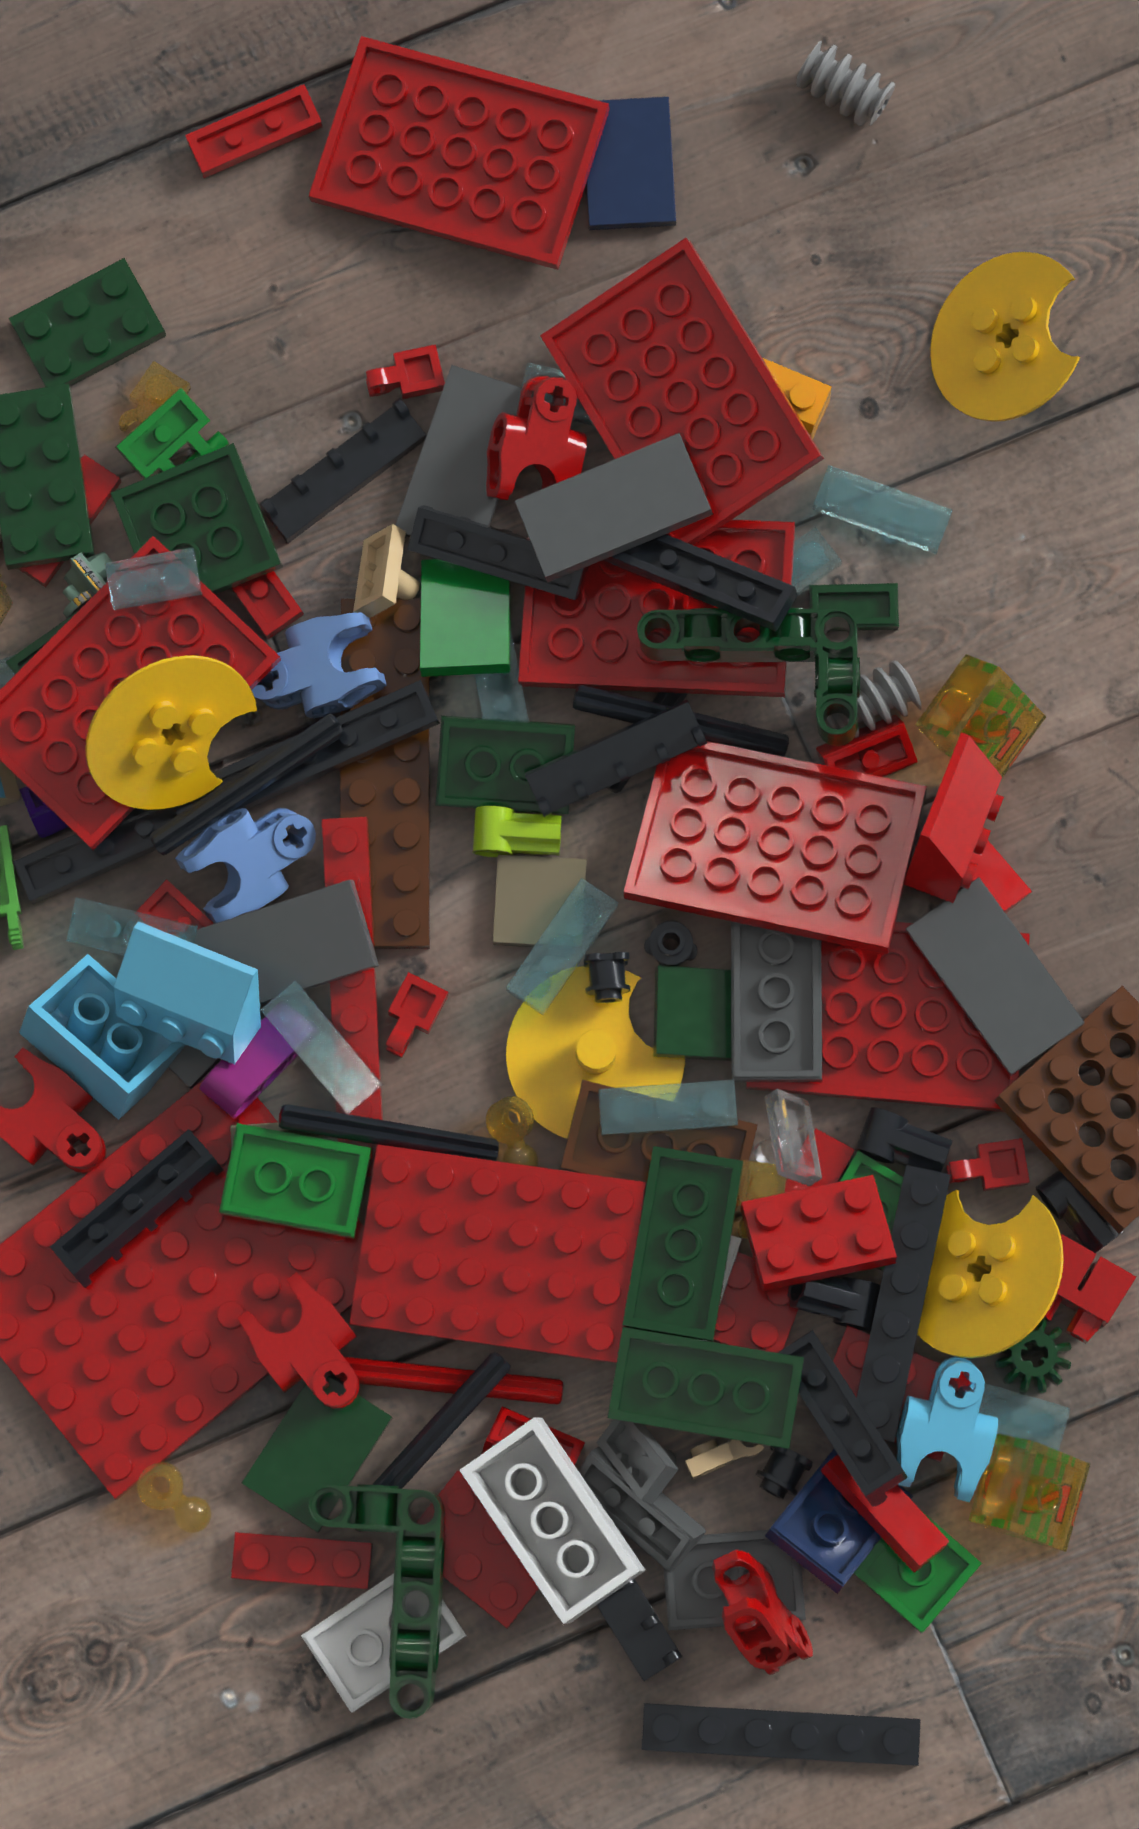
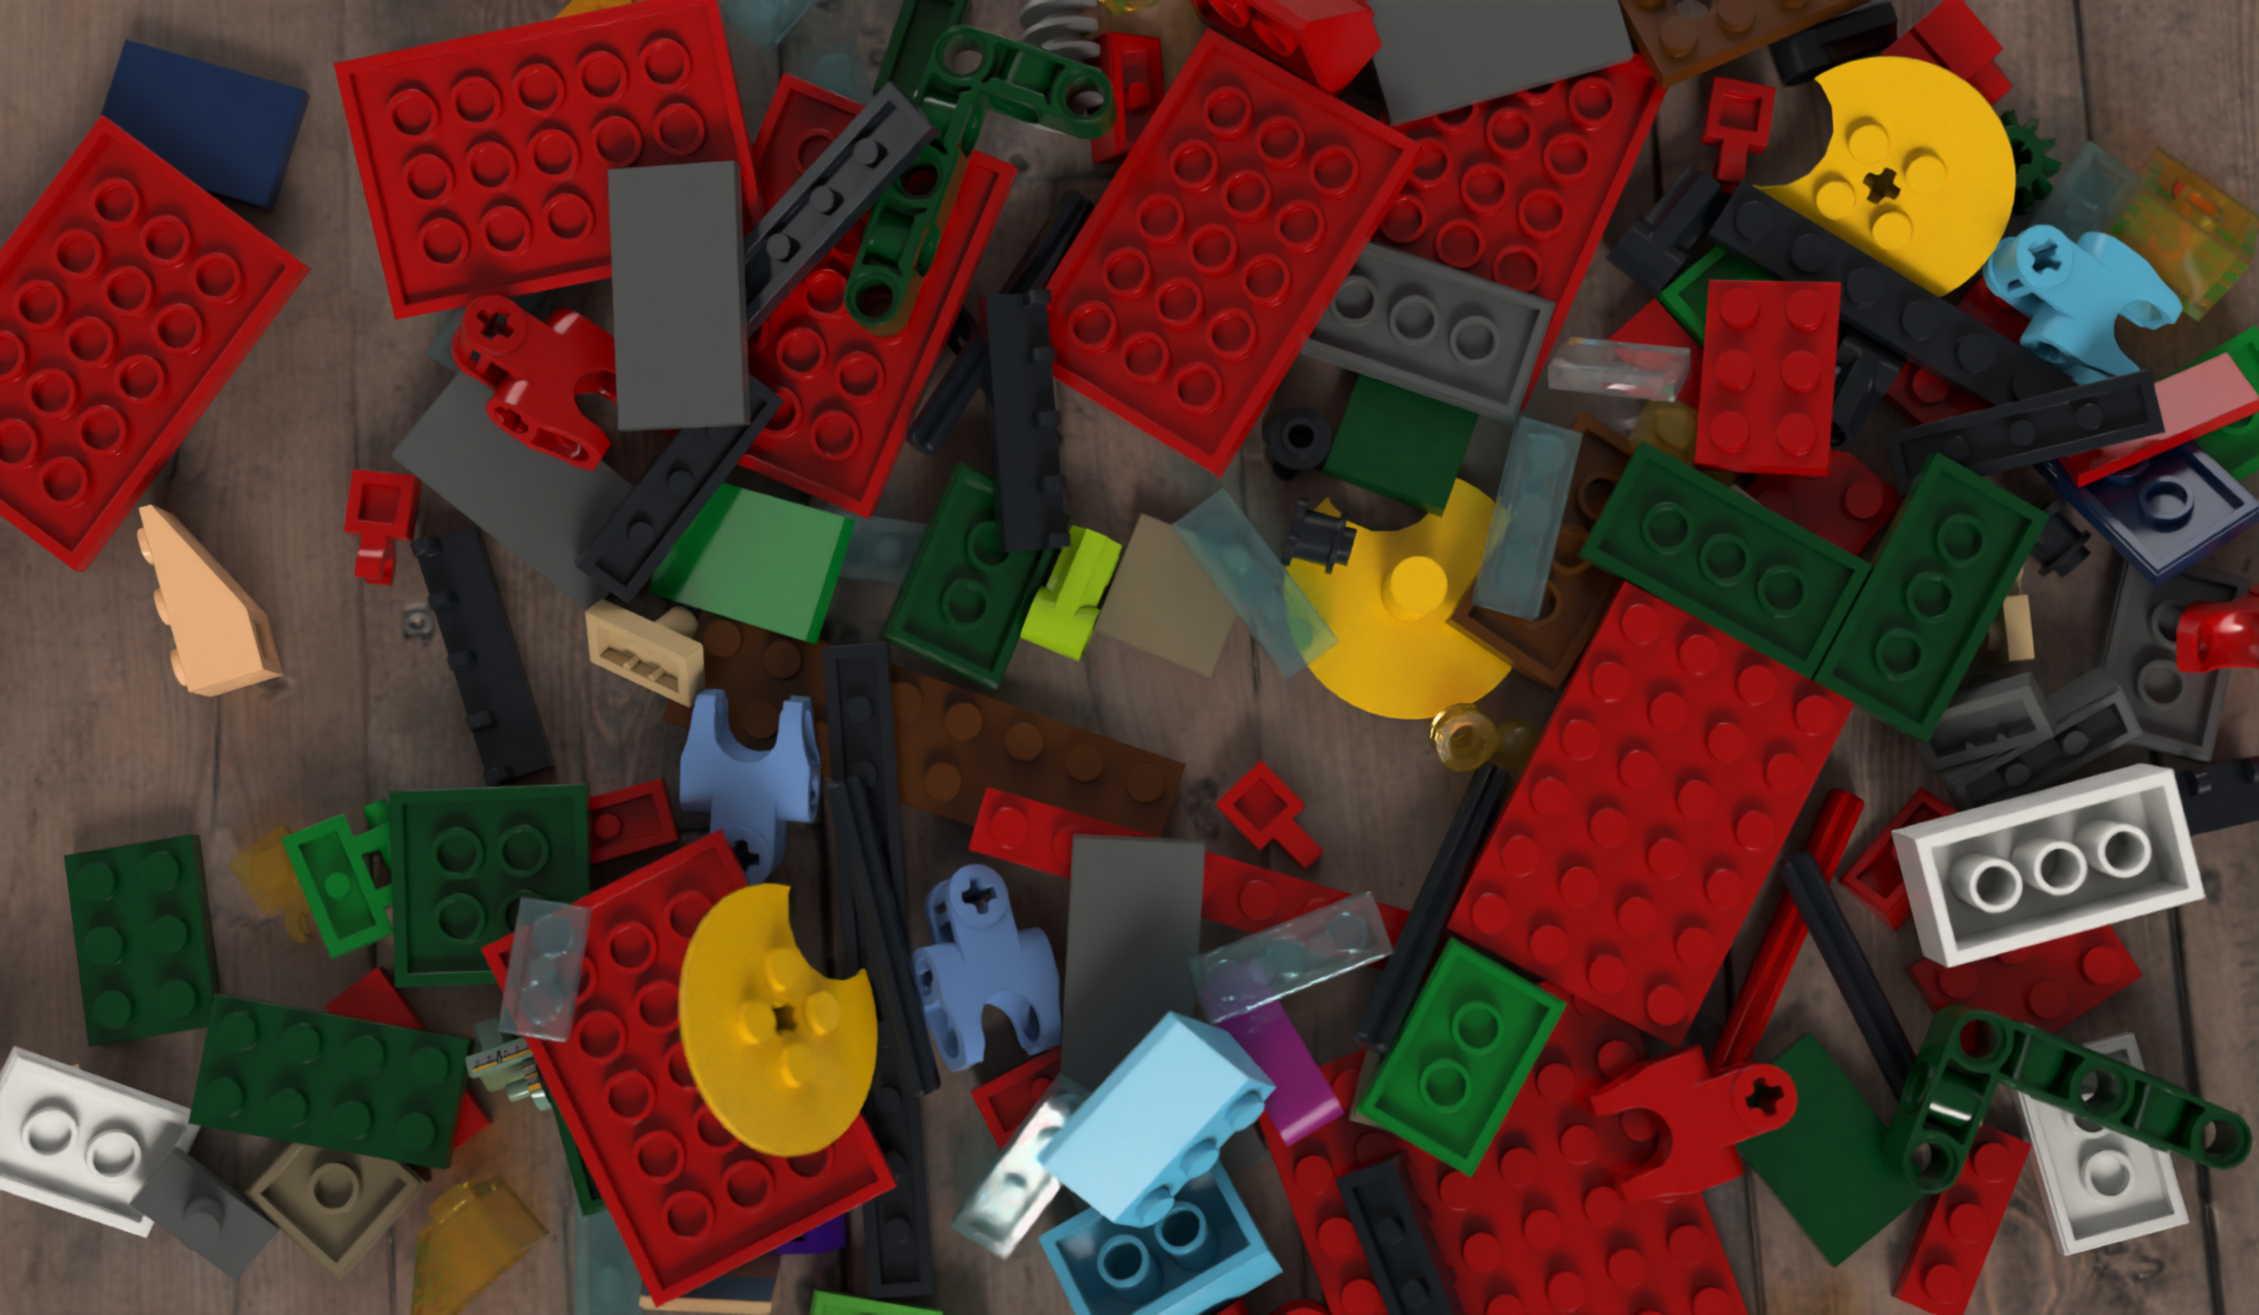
camera: 75 degrees left, 5 degrees up
(307, 294) = (215, 624): none -> light nougat slope

